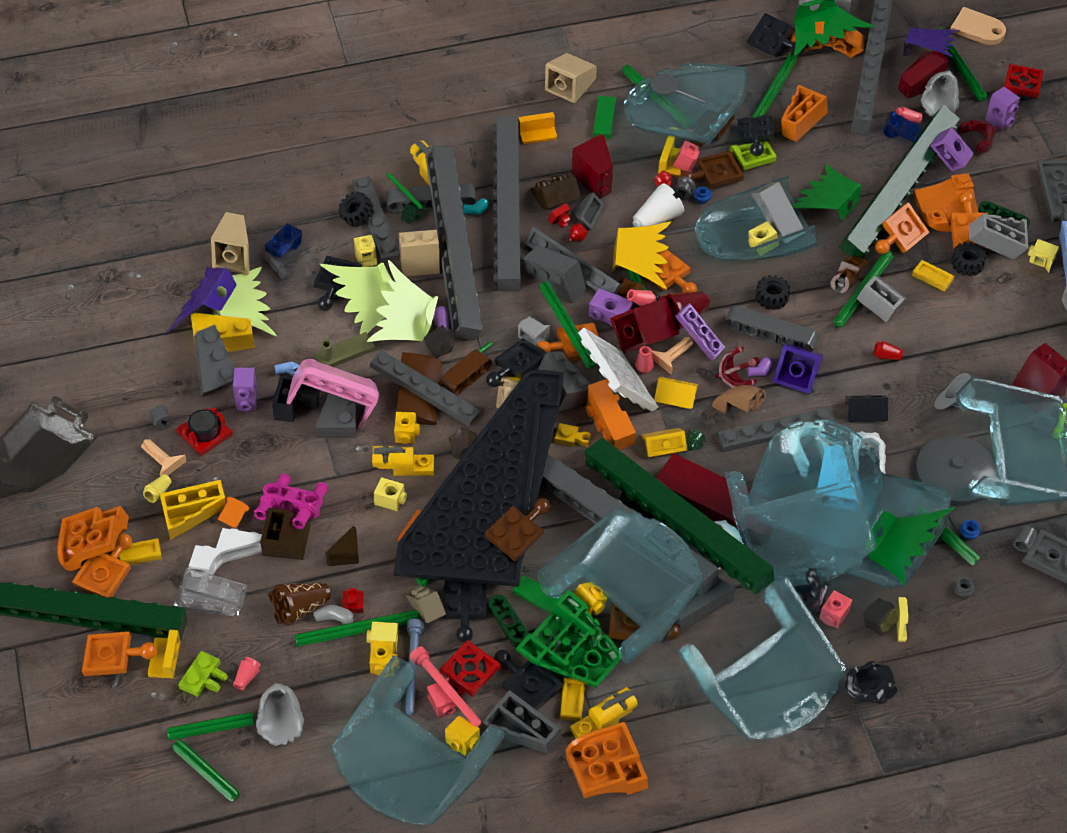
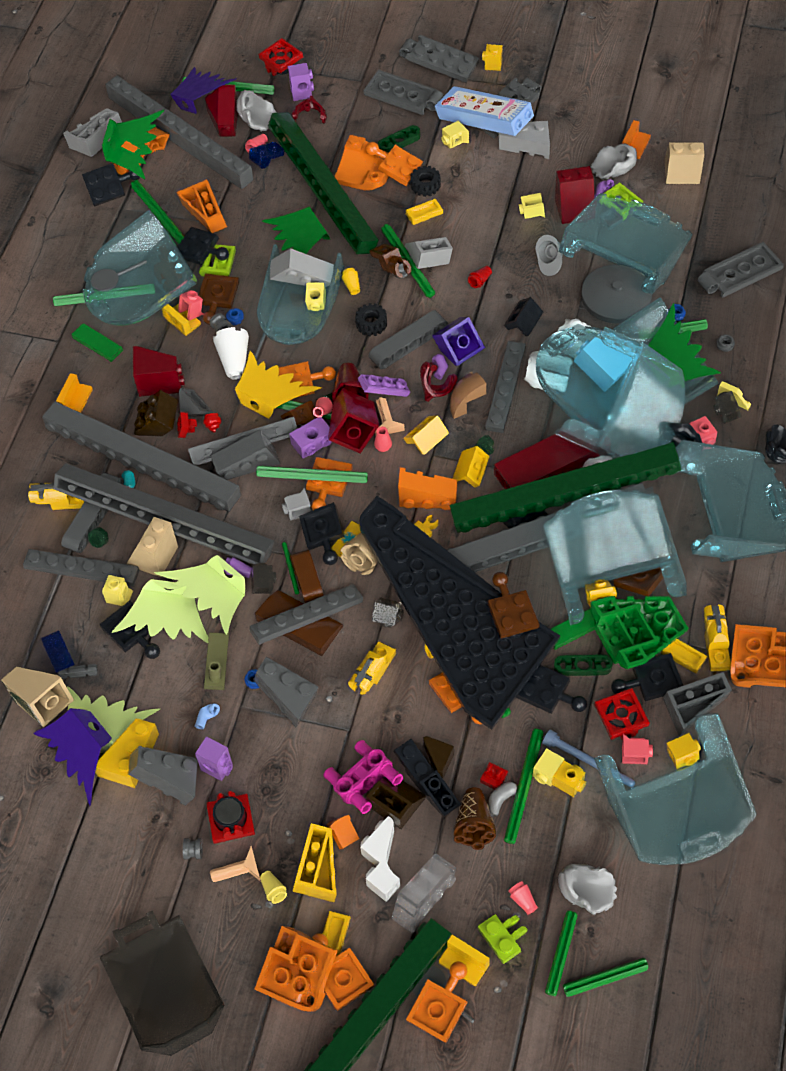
camera: 55 degrees left, 5 degrees up
(305, 397) = (243, 722): black brick -> none
(314, 557) = (426, 779): none -> black slope
(338, 383) = (269, 678): bright pink windscreen -> none
(350, 203) = (74, 579): black tyre -> none
(389, 494) = (398, 702): light yellow brick -> none
(404, 190) = (74, 526): green axle -> none
(406, 427) = (337, 649): yellow brick -> none
(421, 658) = (594, 745): coral piece -> none
(426, 602) = (533, 716): dark tan slope -> none
(569, 77) = (36, 343): tan slope -> none
(574, 385) = (353, 503): dark grey wedge -> none
(617, 370) = (387, 459): white plate -> none
(663, 177) = (199, 334): red plate -> none
(805, 257) = (351, 280): none -> yellow cone
(904, 229) = (372, 203): orange plate -> none
(952, 149) = (317, 132): medium lavender brick -> none
(979, 27) = (198, 54): light nougat tile -> none
(1000, 235) = (425, 147): light grey wedge -> none
(1006, 354) = (532, 206): none -> light yellow window

